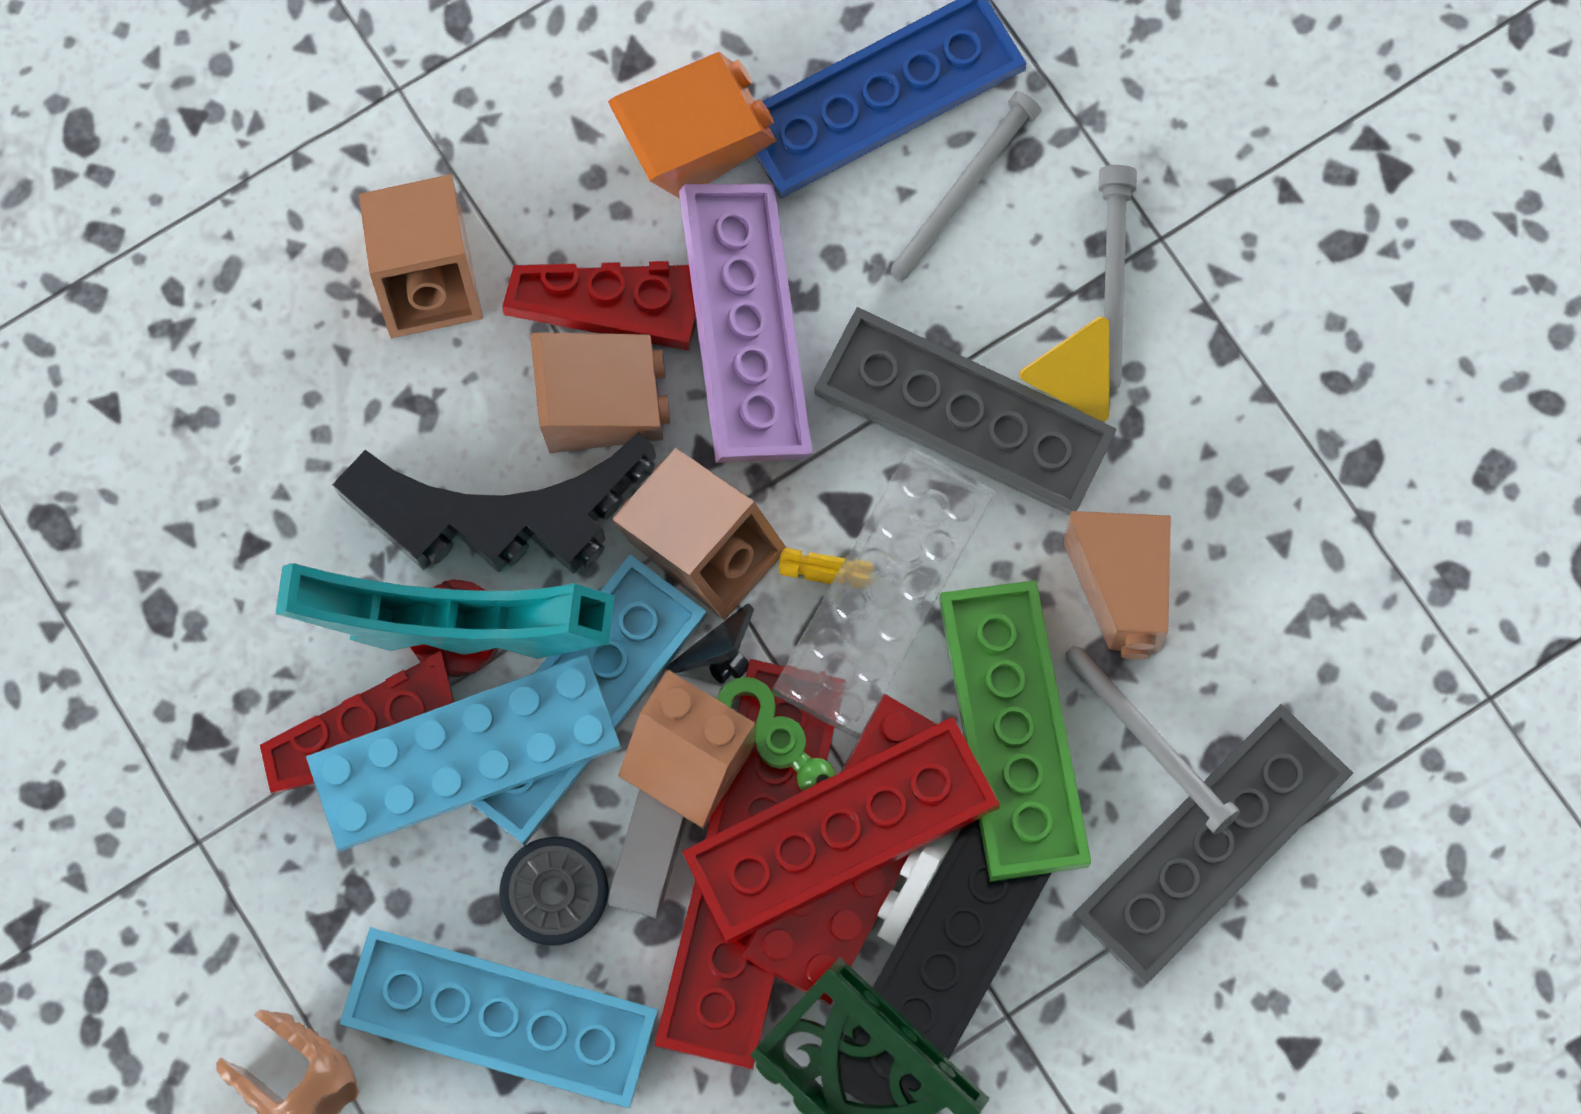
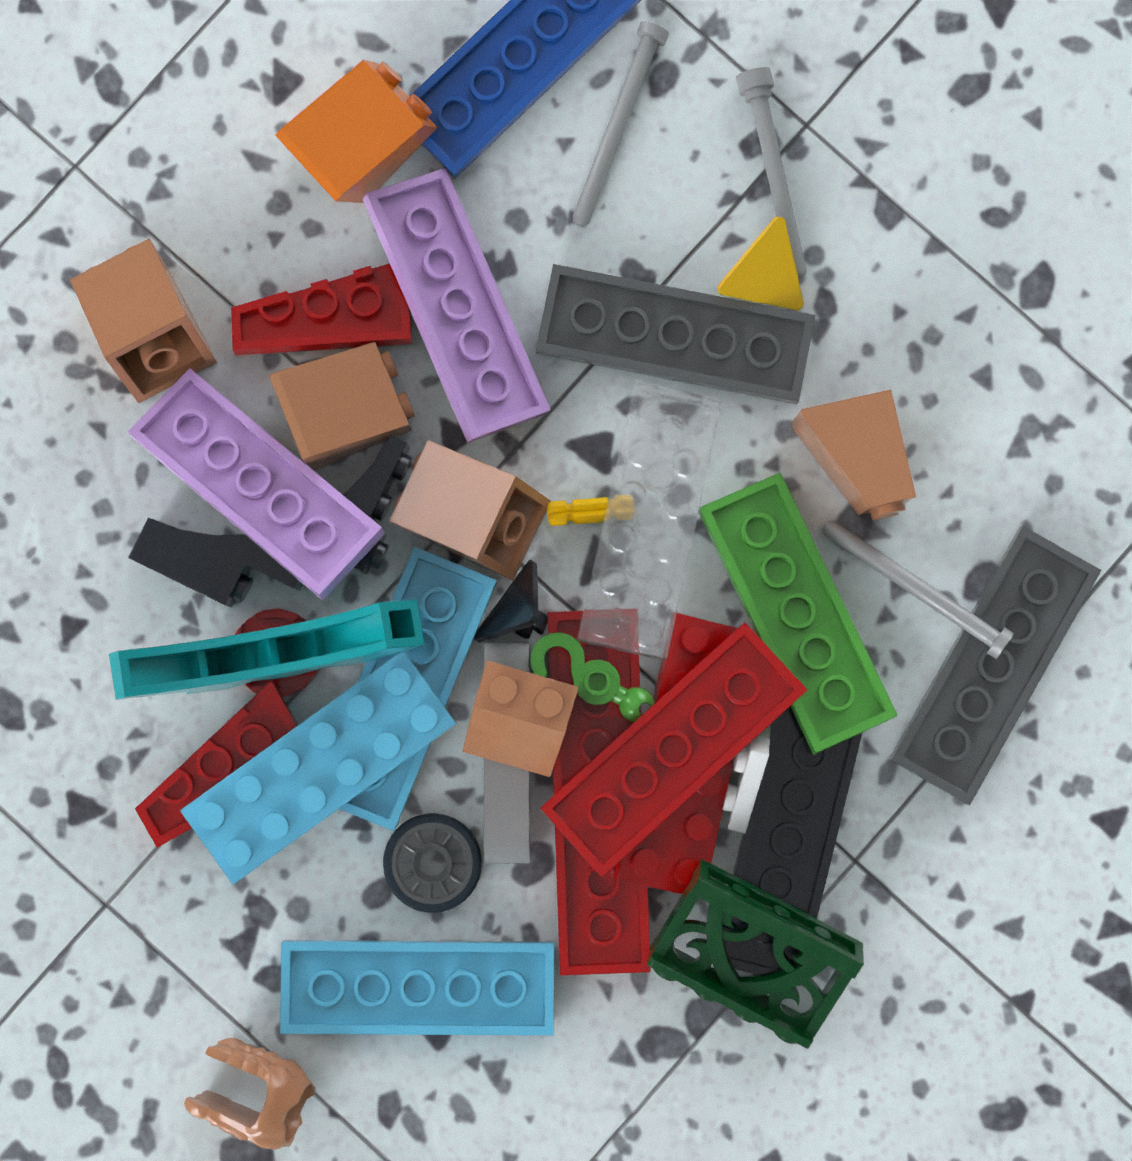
camera: 20 degrees left, 10 degrees up
(486, 444) = (257, 483): none -> lavender plate

